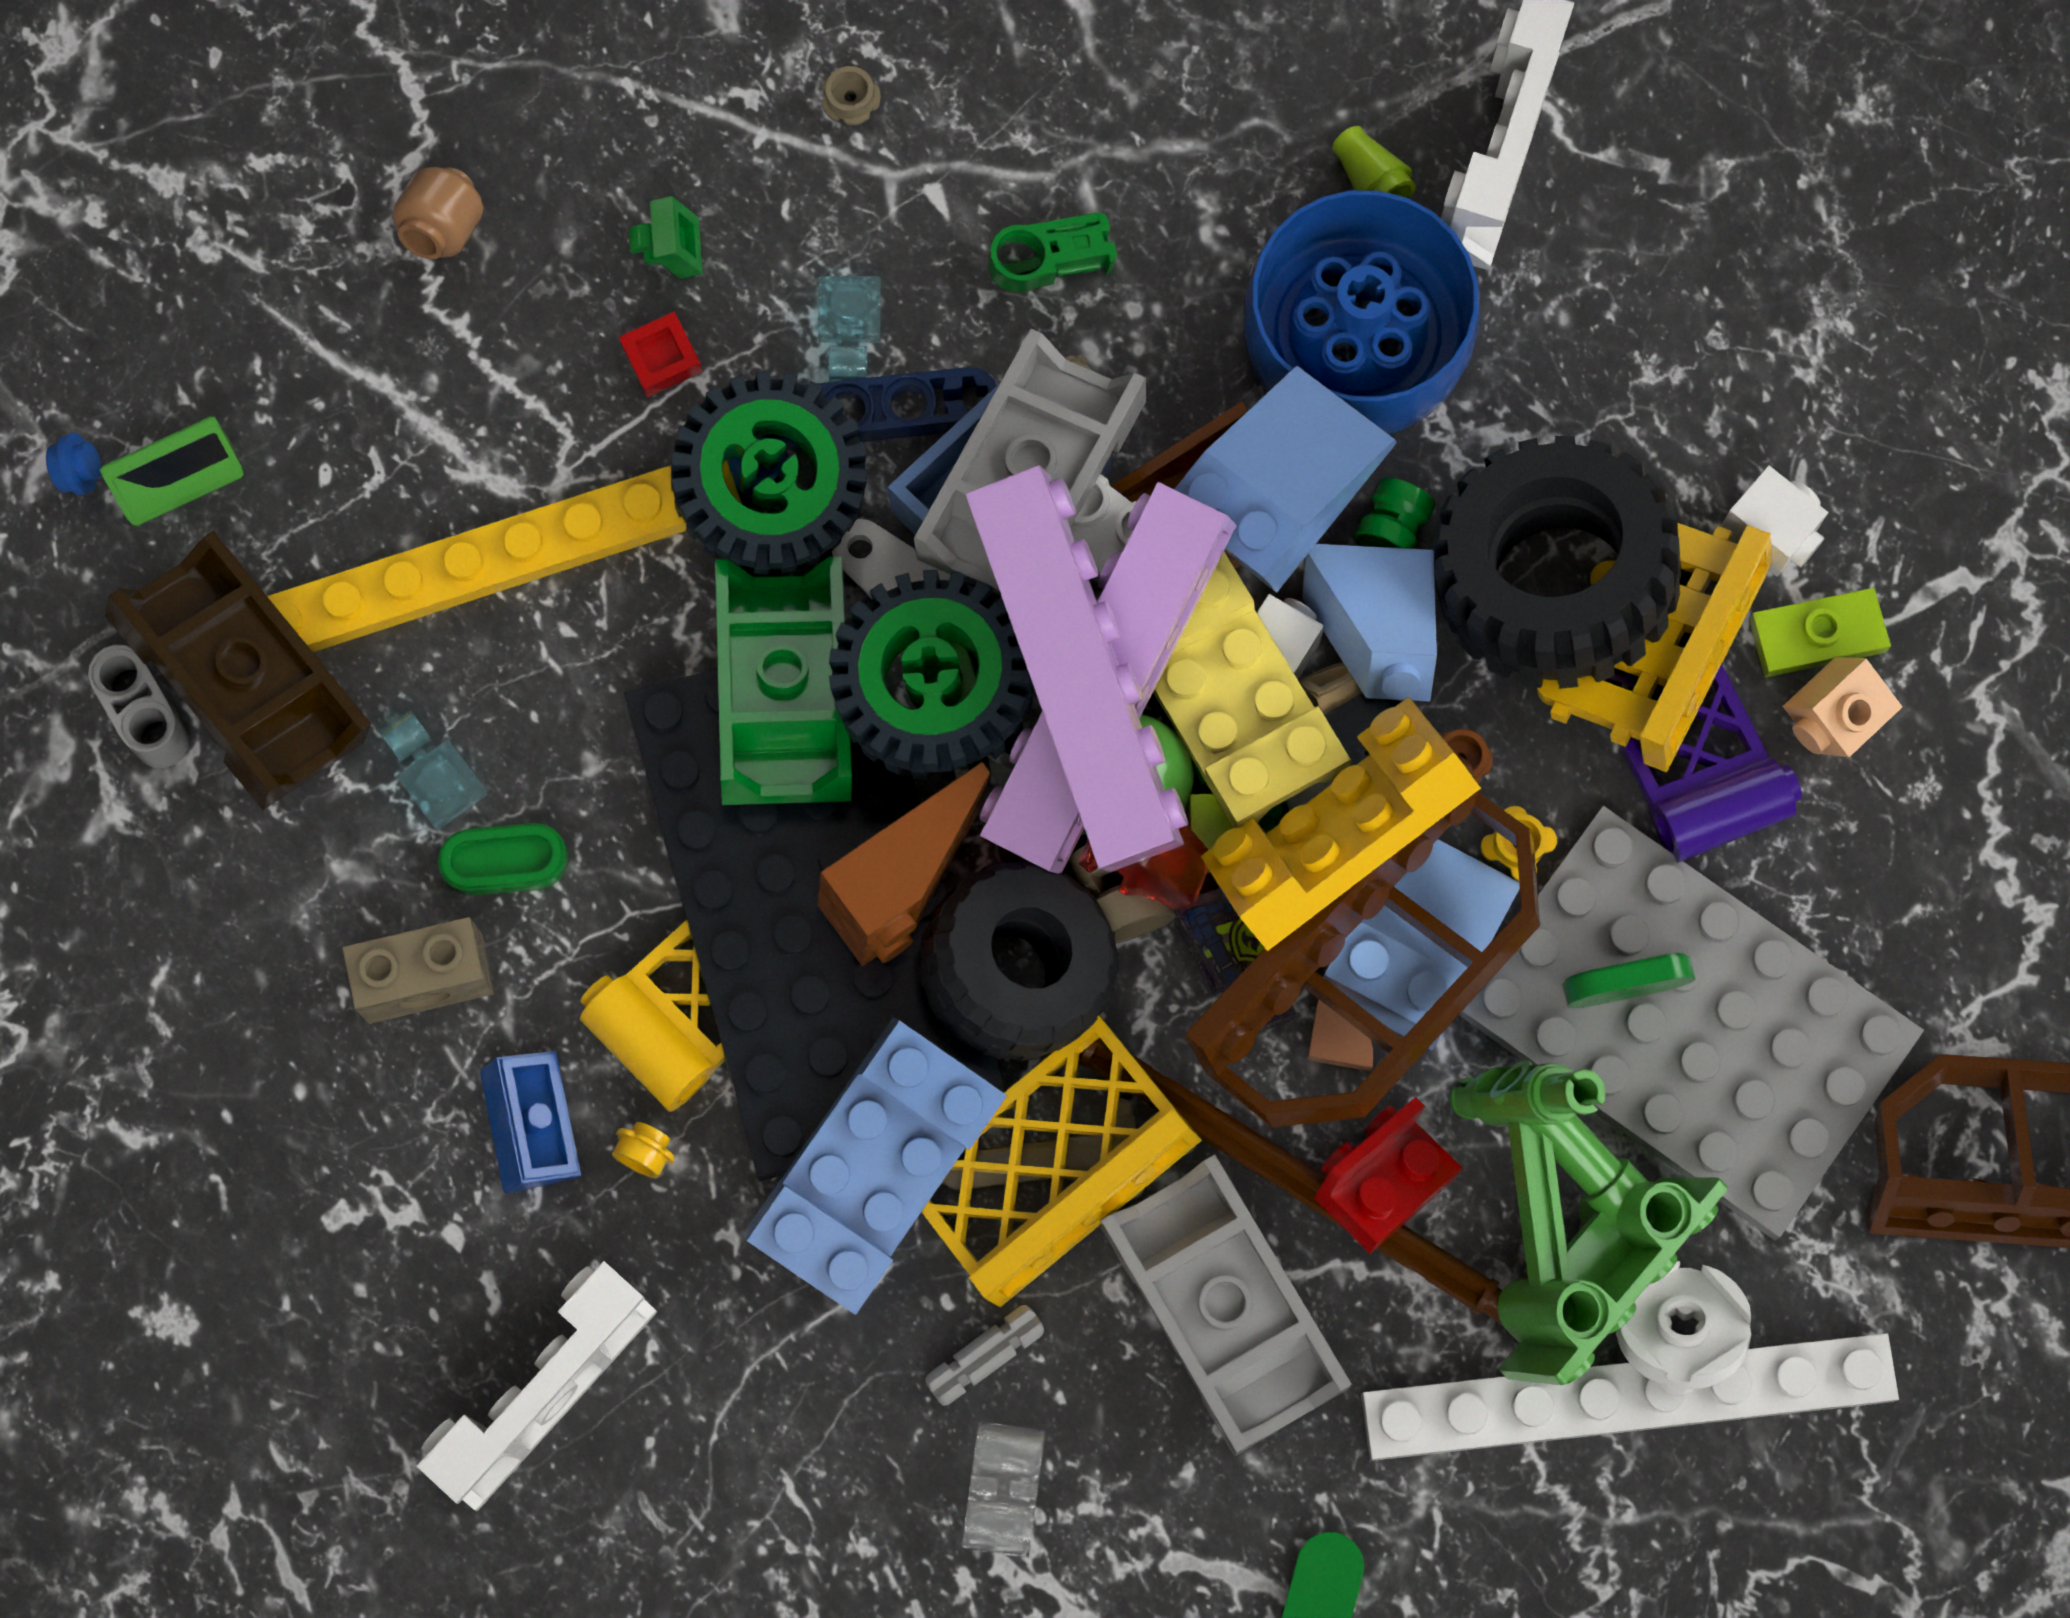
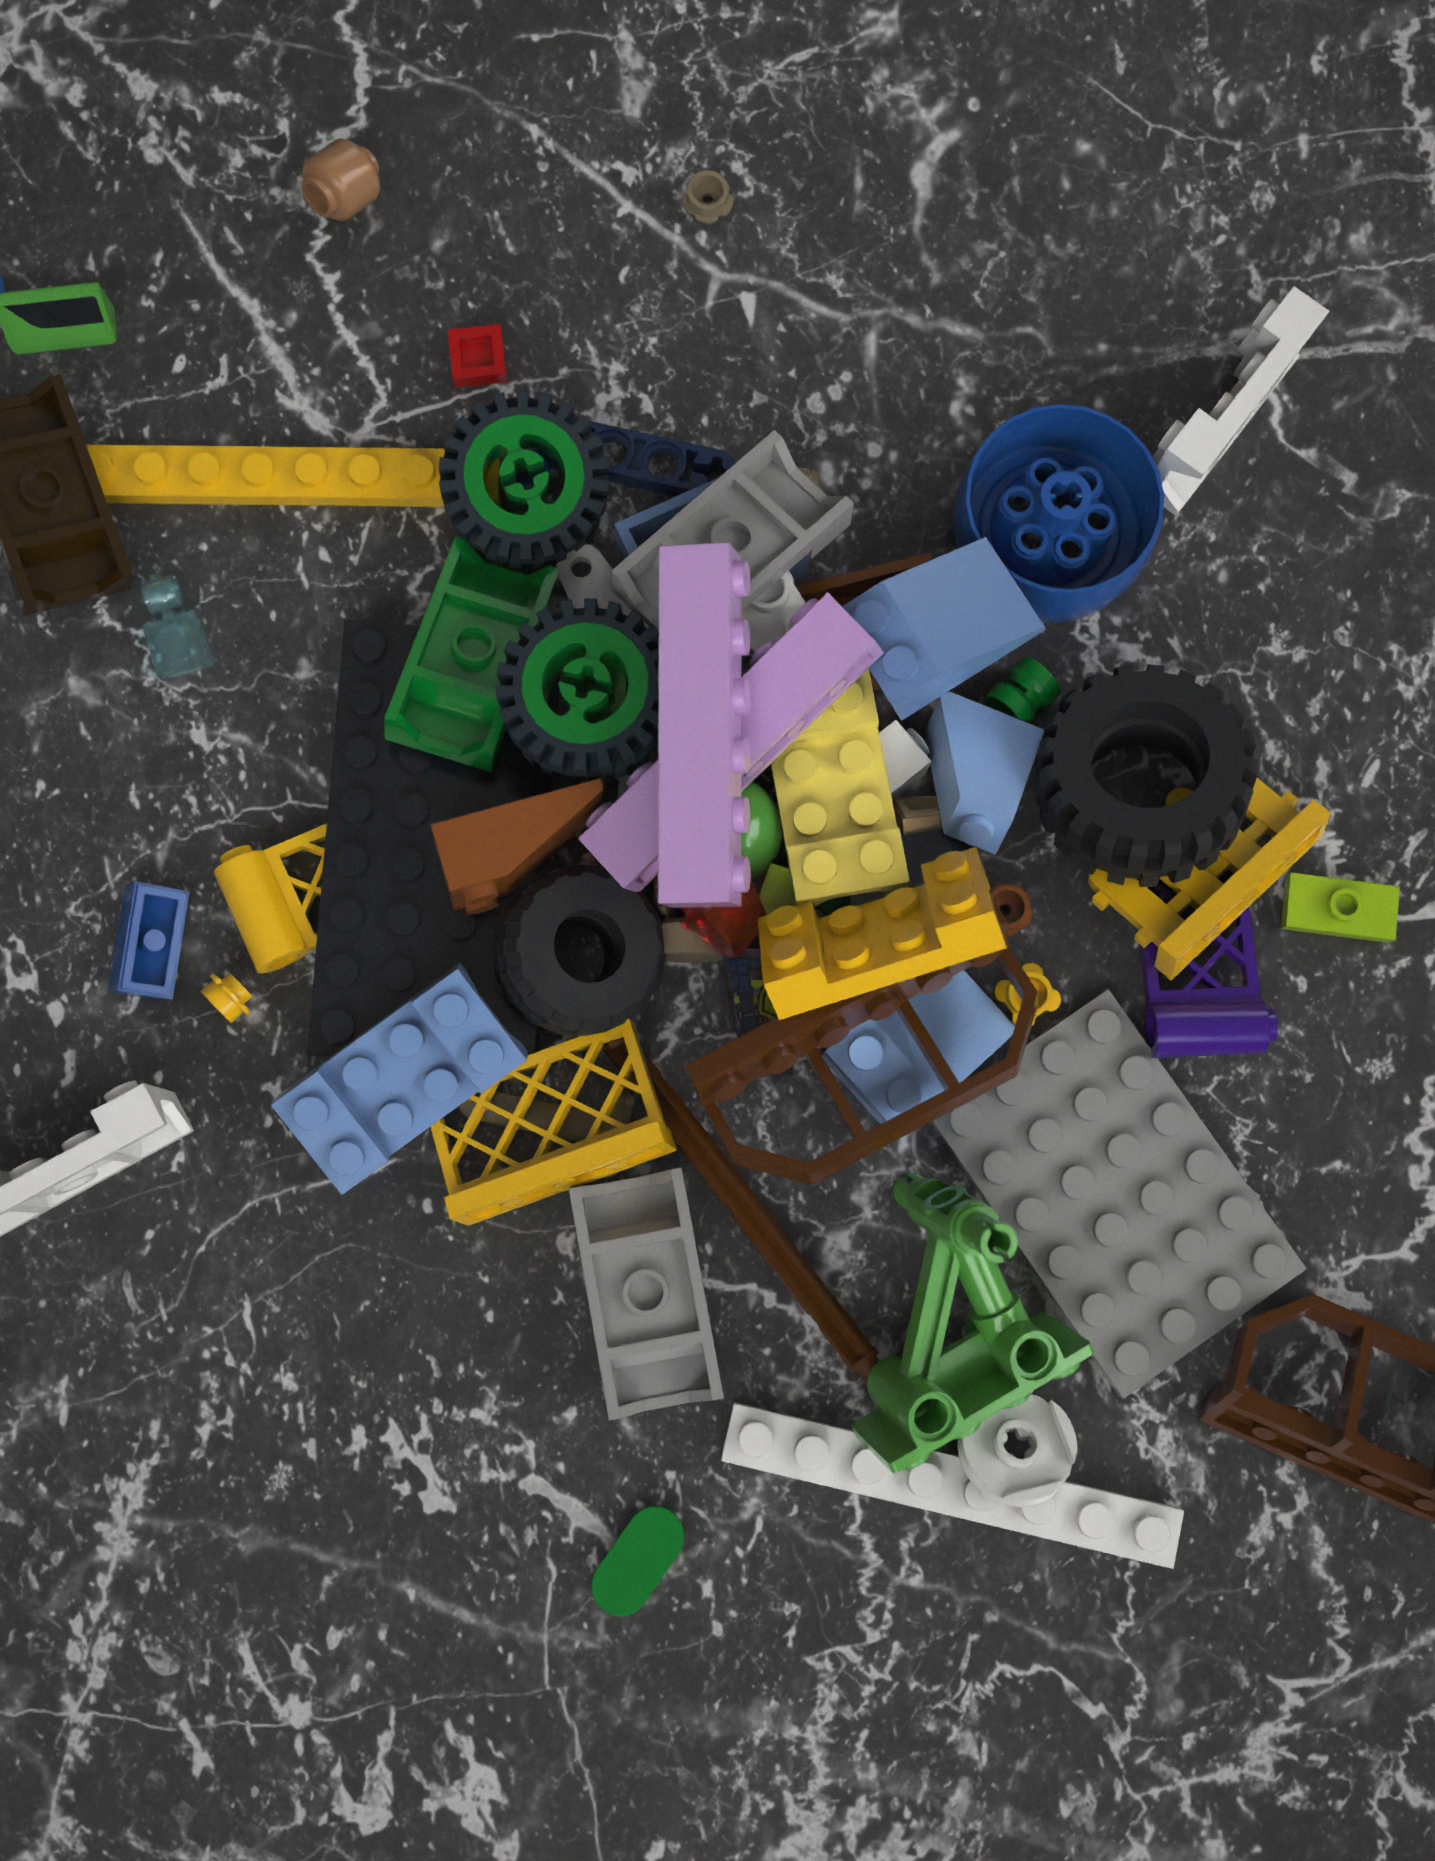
camera: 15 degrees right, 5 degrees up
(418, 970) = (99, 788): dark tan brick -> none
(503, 859) = (204, 722): green tile -> none
(669, 238) = (519, 263): green tile -> none
(849, 315) = (641, 376): clear light blue plate -> none
(984, 1355) = (439, 1261): light grey axle -> none
(1003, 1489) = (413, 1378): clear beam -> none
(1062, 247) = (834, 380): green piece -> none
(1338, 1041) = (817, 1109): nougat tile -> none
(1371, 165) = (1110, 394): lime cone -> none
(1386, 1176) = (816, 1235): red bracket -> none
(1628, 980) = (1075, 1144): green tile -> none
(1784, 510) = (1349, 798): white brick -> none
(1841, 707) = (1336, 977): light nougat brick -> none

